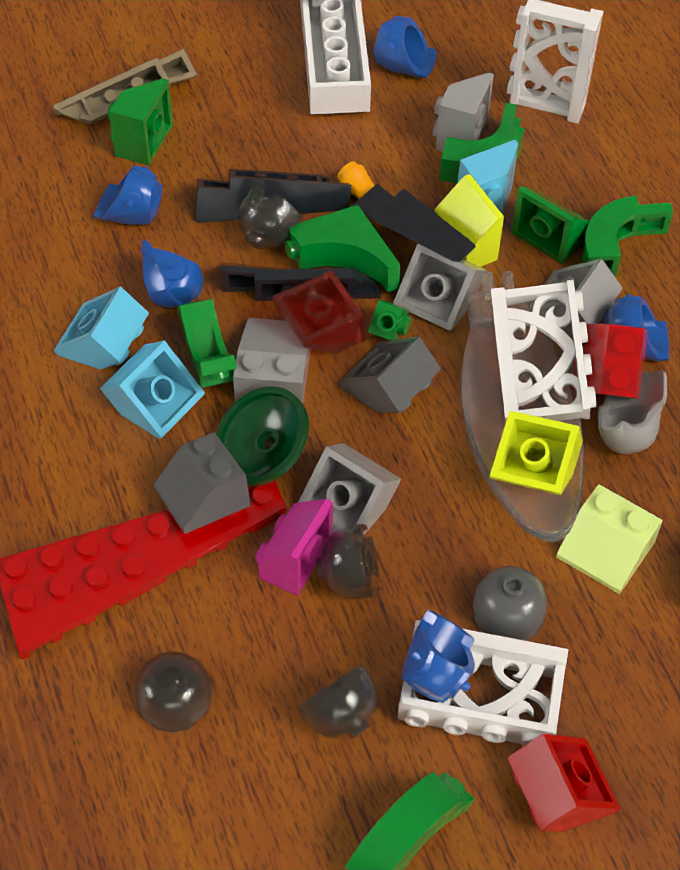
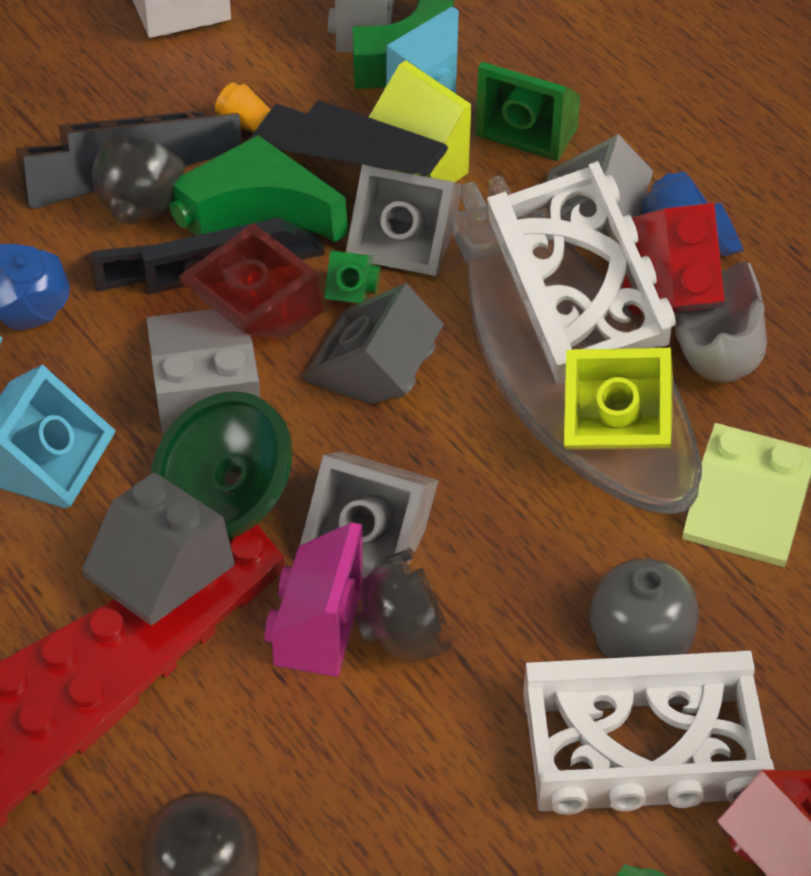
camera: 15 degrees left, 5 degrees down
(205, 343) = (97, 363): green arch -> none
(343, 705) = (460, 808): clear smoke cylinder -> none
(439, 658) = (579, 707): blue helmet -> none
(619, 221) = (622, 87): green arch -> none

